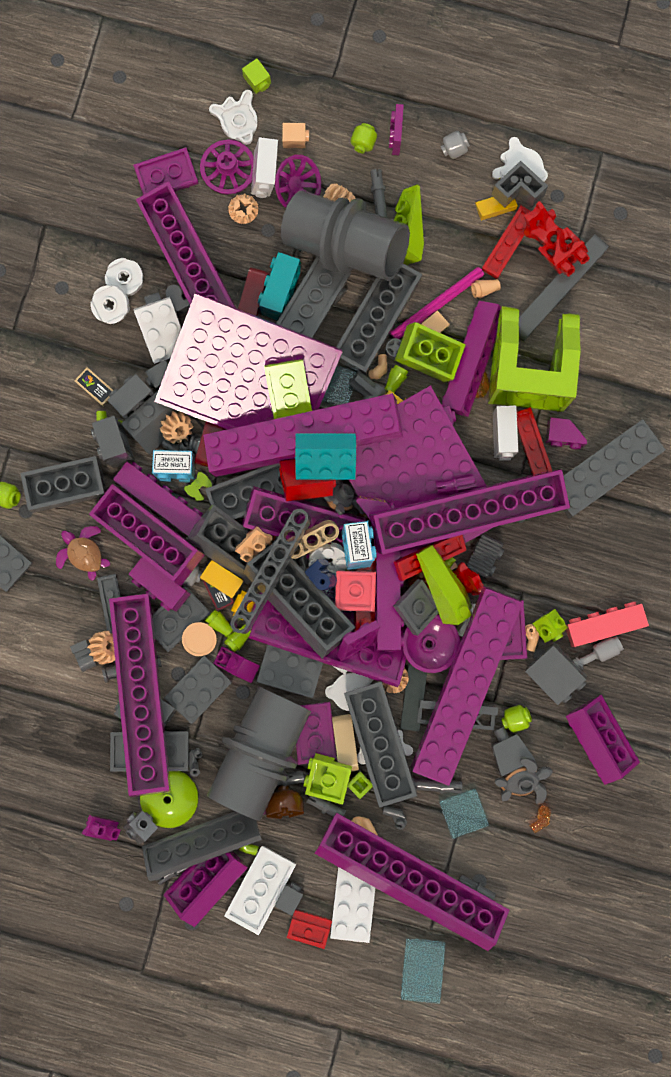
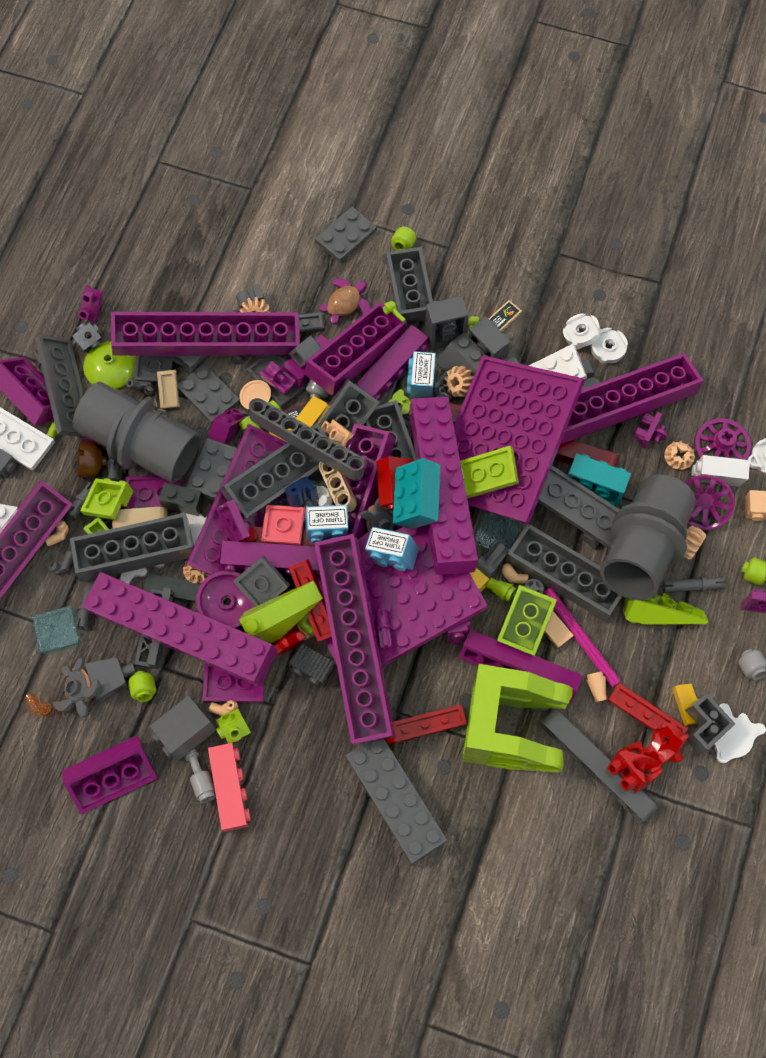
camera: 95 degrees right, 15 degrees down
(98, 499) = (391, 307): none -> lime hand
(157, 585) = (305, 351): none -> dark grey brick
(170, 167) = (717, 390): magenta tile -> none
(182, 615) = (278, 378): none -> magenta hips
(197, 731) = (168, 389): none -> tan tile
(211, 233) = (658, 433): none -> magenta hips
(324, 701) = (181, 499): none -> pearl dark grey brick
(378, 480) = (392, 549): none -> brick
(505, 432) = (439, 691): white brick -> none
(564, 432) = (438, 757): magenta slope -> none

